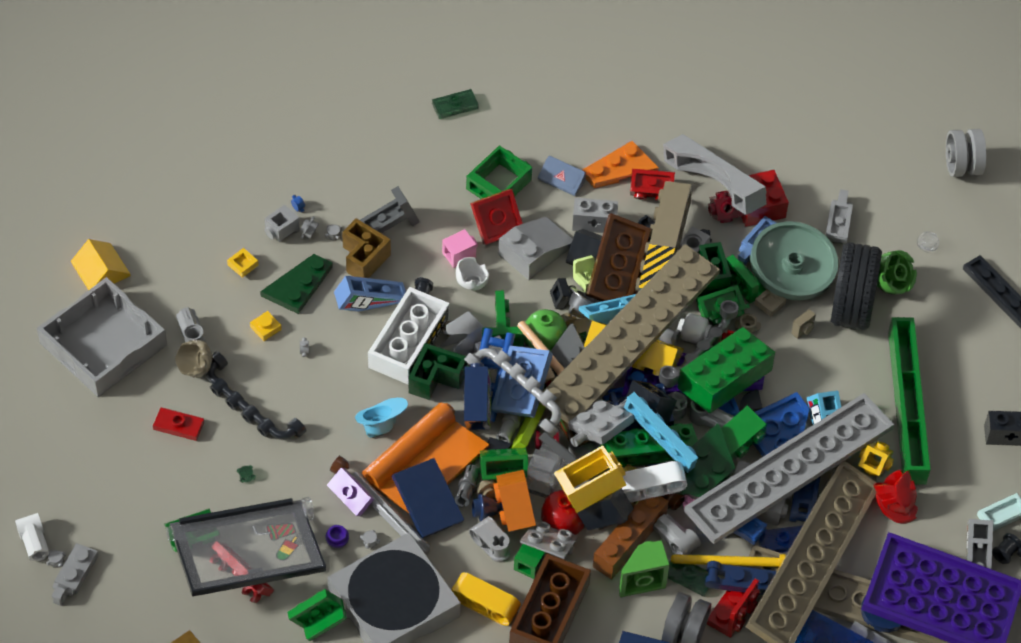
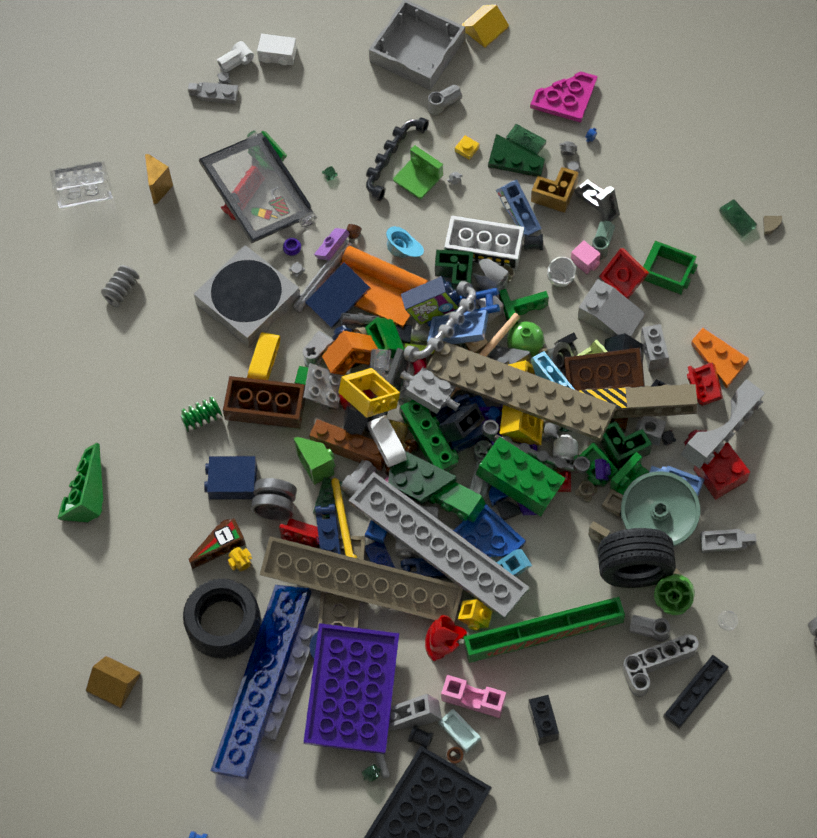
camera: 80 degrees right, 10 degrees up
(42, 487) = (277, 49): none -> white brick
(178, 424) = (359, 118): red plate -> none
(194, 358) = (414, 107): dark tan hair -> none
(238, 212) = (566, 97): none -> dark pink plate
(242, 262) = (519, 114): yellow plate -> none
(279, 264) = (526, 139): none -> clear green plate
(281, 223) = (564, 127): light grey brick -> none
(286, 378) = (419, 173): none -> bright green bracket
(318, 614) = (217, 250): green bracket -> none
(439, 225) = (603, 238): none -> sand green piece
(473, 78) = (771, 223): none -> dark tan tile
(562, 175) = (690, 315): sand blue slope -> none
(655, 426) = (424, 439): medium azure plate -> none
(736, 294) = (602, 469): none -> dark purple plate
(924, 308) = (647, 627): none -> light grey piece
(965, 331) = (662, 660): none -> light grey beam
(970, 489) = (486, 701): none -> bright pink arch

